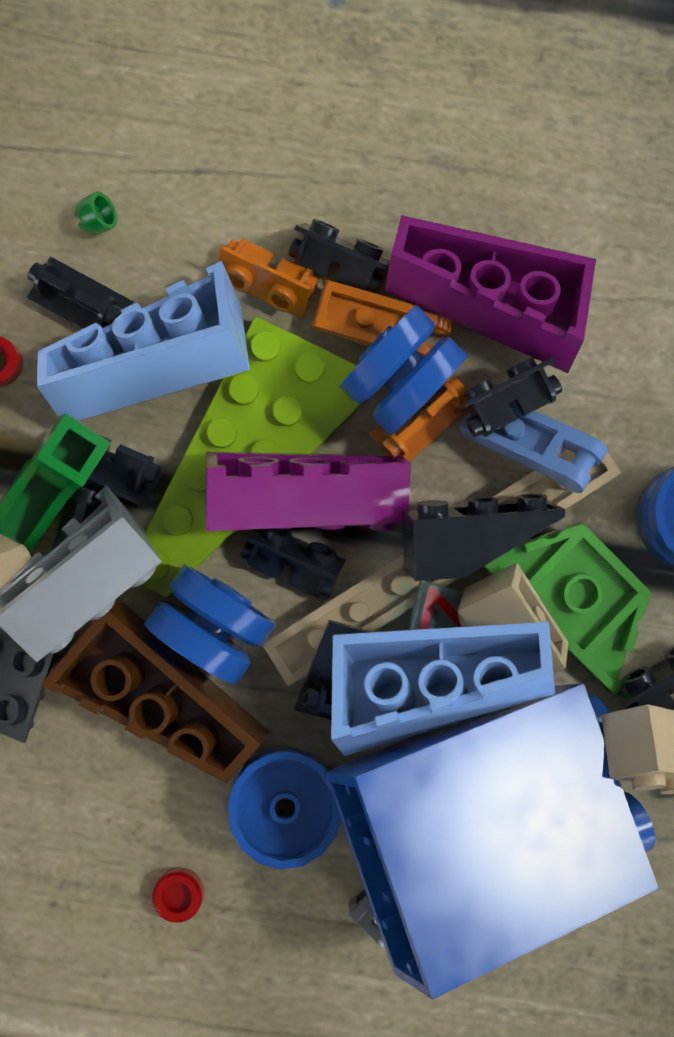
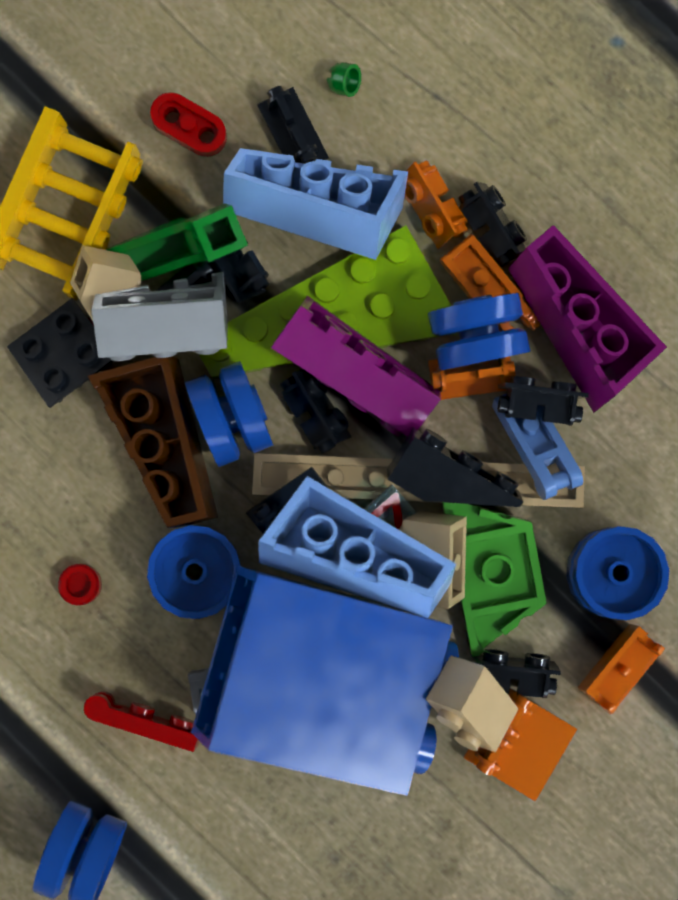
camera: 30 degrees right, 0 degrees up
(332, 992) = (141, 721): none -> red plate

